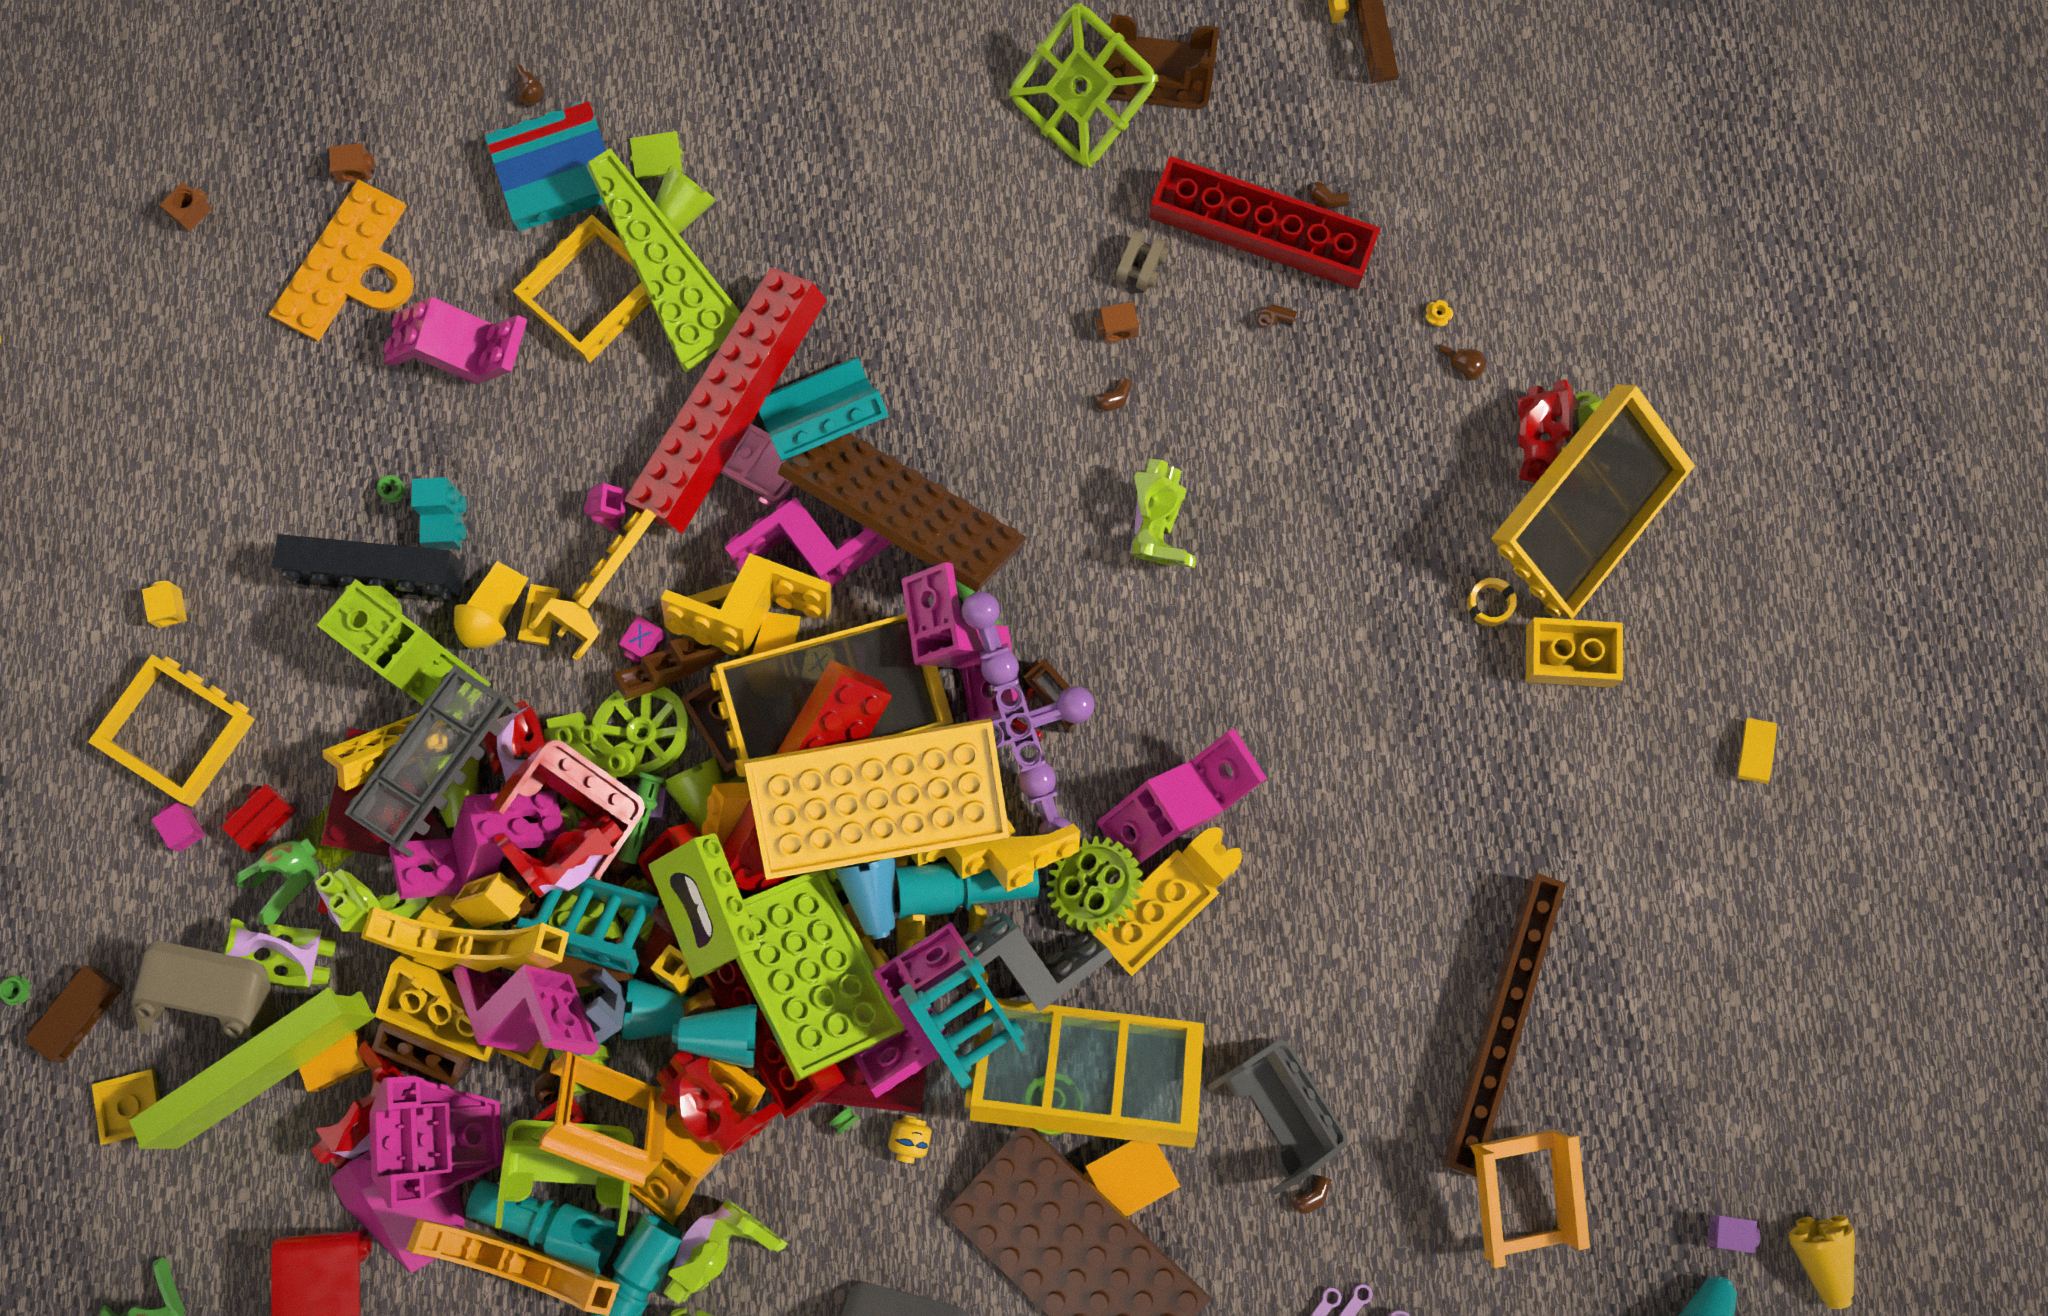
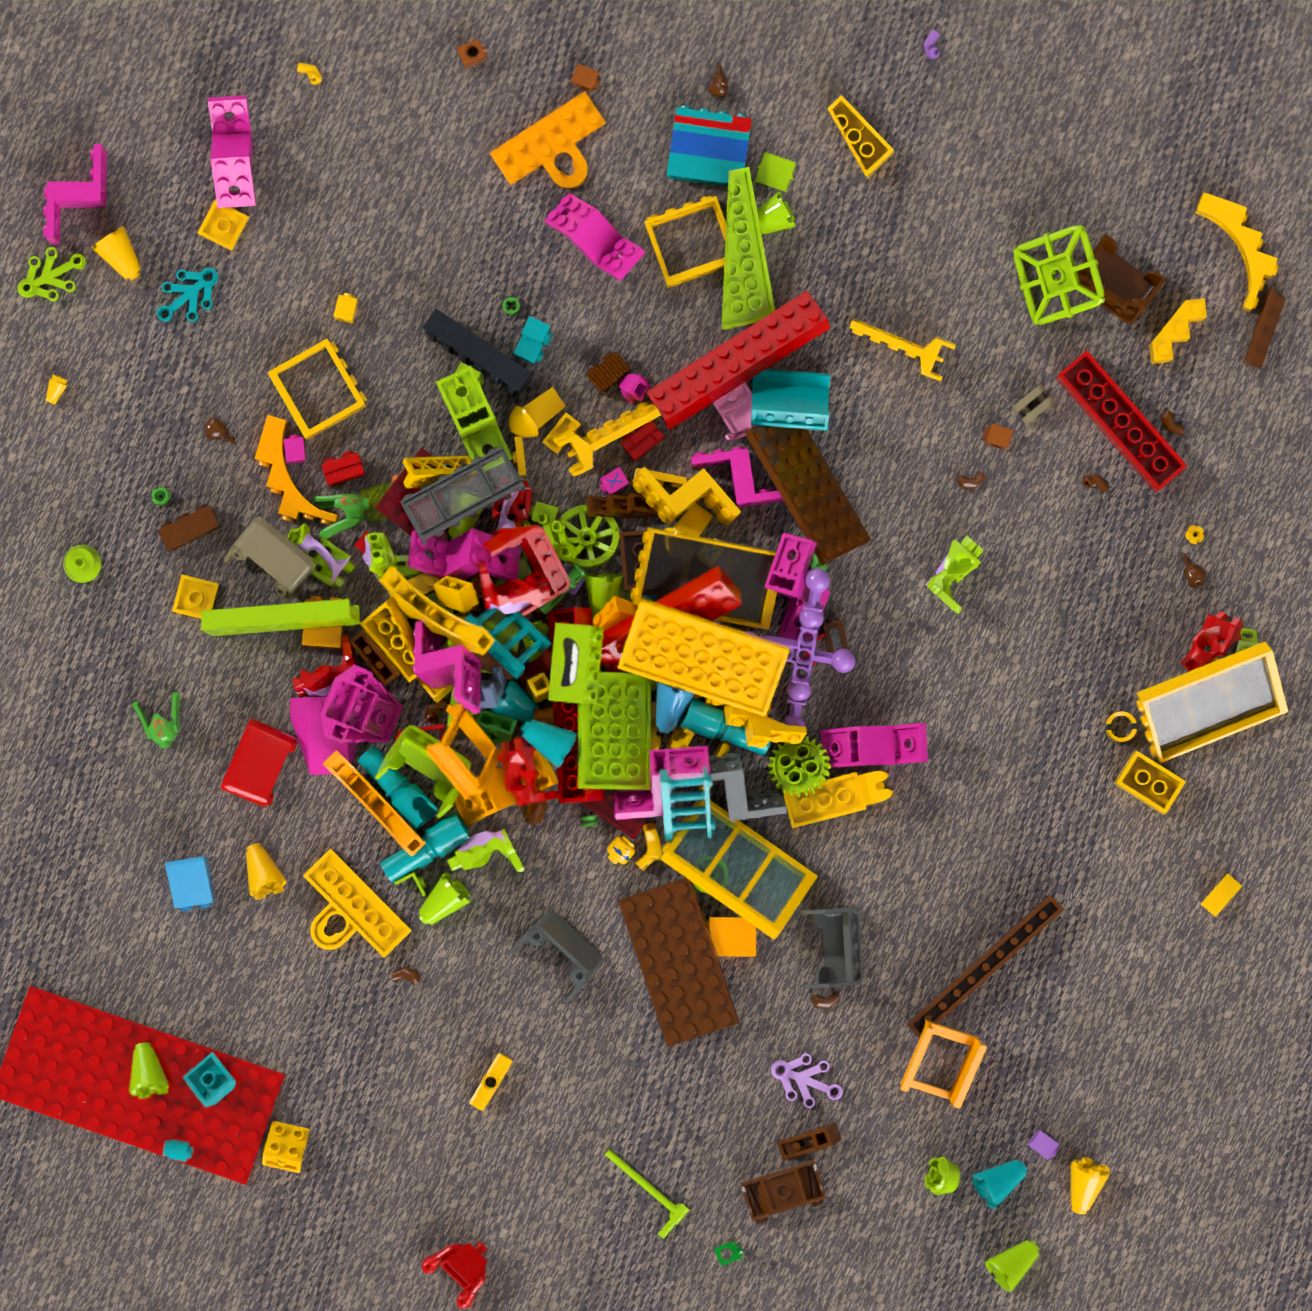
camera: 20 degrees right, 10 degrees up
(53, 857) = (215, 429): none -> reddish brown piece
(146, 852) = (271, 452): none -> light orange arch
(495, 673) = (519, 457): none -> yellow plate
(561, 505) = (608, 372): none -> reddish brown brick
(642, 1057) = (496, 726): none -> bright green brick
(653, 567) = (642, 440): none -> red brick
(742, 56) = (863, 141): none -> yellow wedge
(761, 1151) = (534, 813): none -> reddish brown brick
(948, 269) = (927, 354): none -> yellow hinge
(953, 1107) = (653, 844): none -> yellow arm
(1269, 82) = (1176, 330): none -> yellow brick

